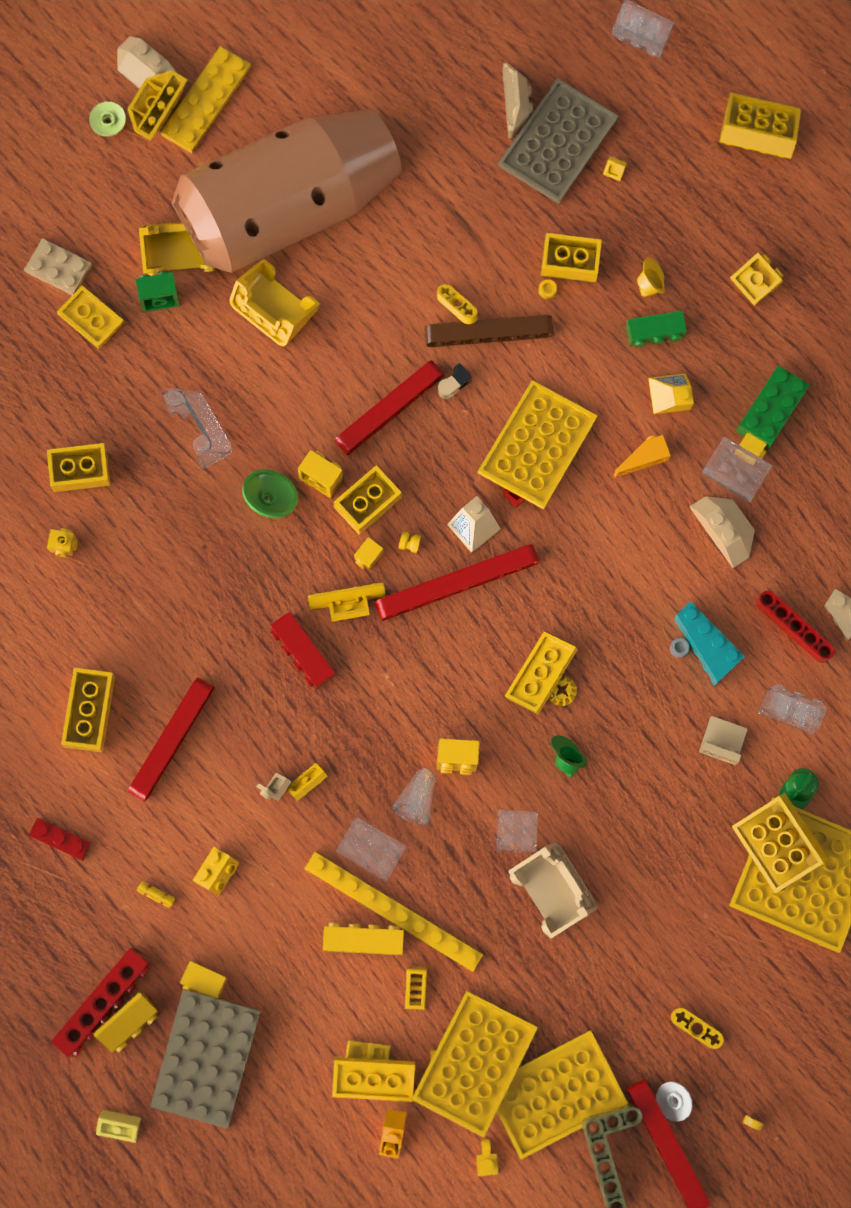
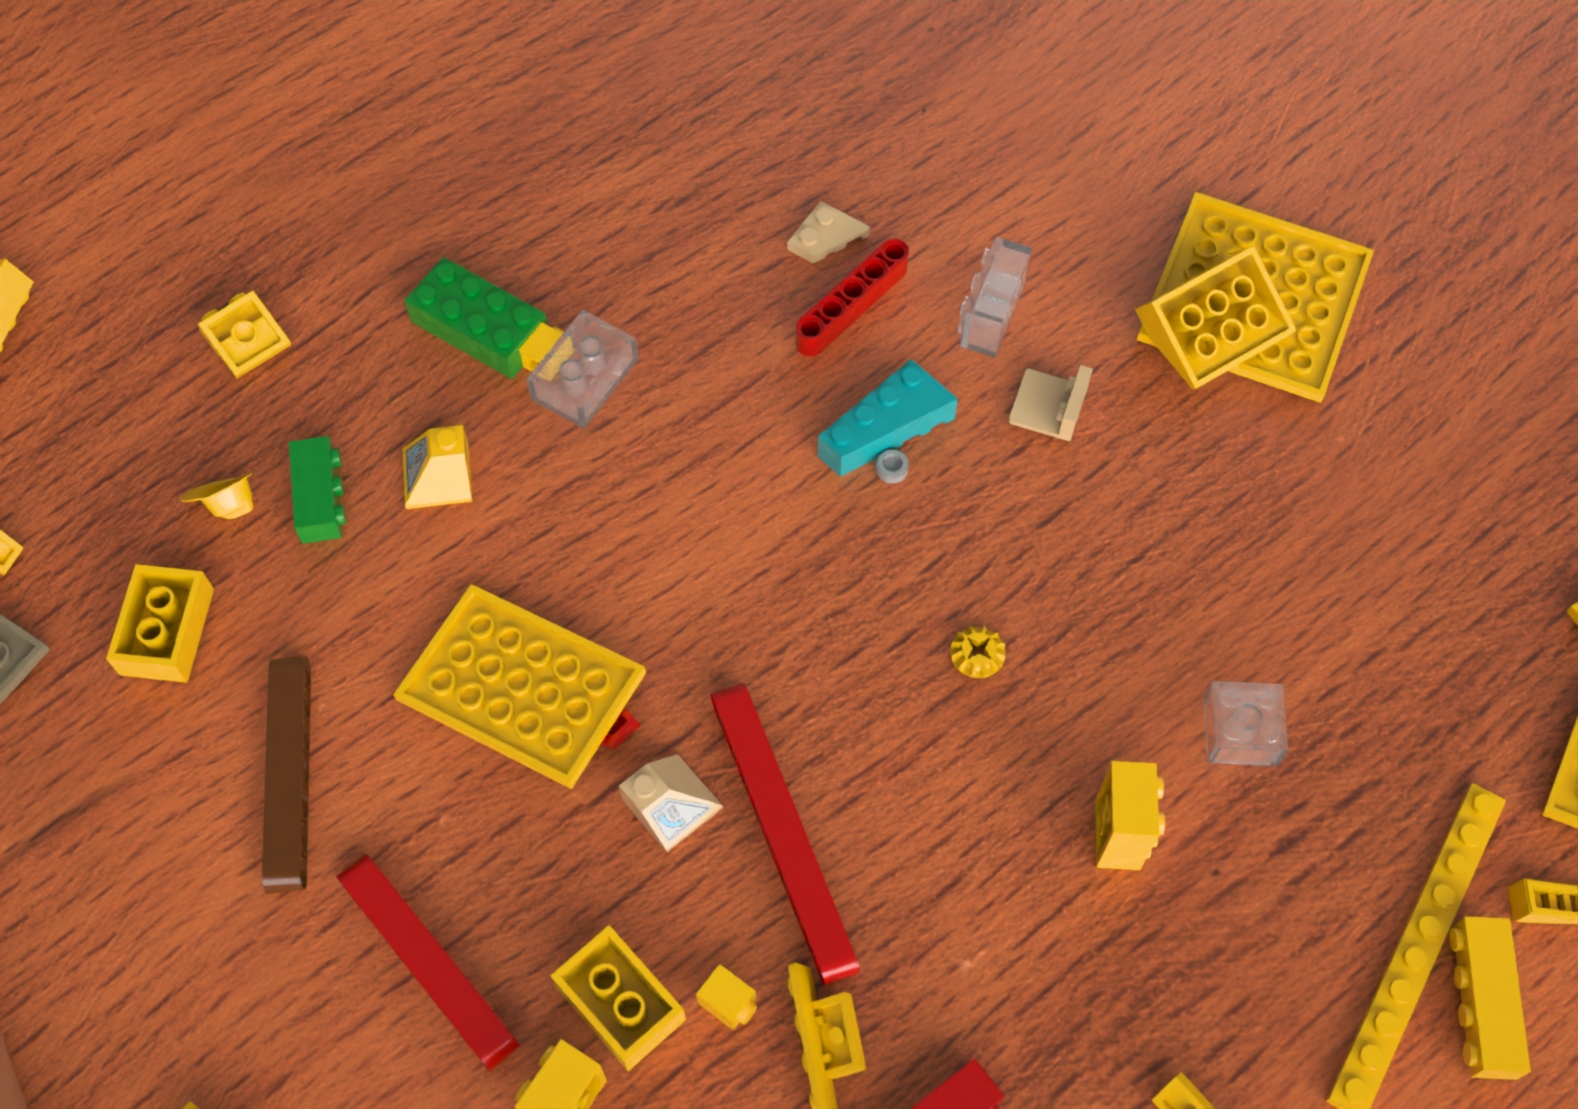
camera: 85 degrees left, 15 degrees down
(371, 849) = (1313, 985): clear brick -> none
(409, 542) = (703, 917): yellow wheel -> none
(416, 798) = (1204, 897): clear cone -> none
(452, 385) = (391, 840): leg -> none
(458, 311) = (208, 845): yellow beam -> none
(541, 672) = (952, 680): yellow plate -> none
(547, 289) = (216, 670): yellow tile -> none
(554, 888) = (1343, 659): tan windscreen -> none
(567, 755) = (1100, 638): green piece -> none
(648, 454) = (549, 510): light orange slope -> none
(712, 1032) = (1530, 464): yellow beam -> none
(726, 527) = (681, 393): tan wedge -> none
(800, 787) = (1114, 300): green piece -> none

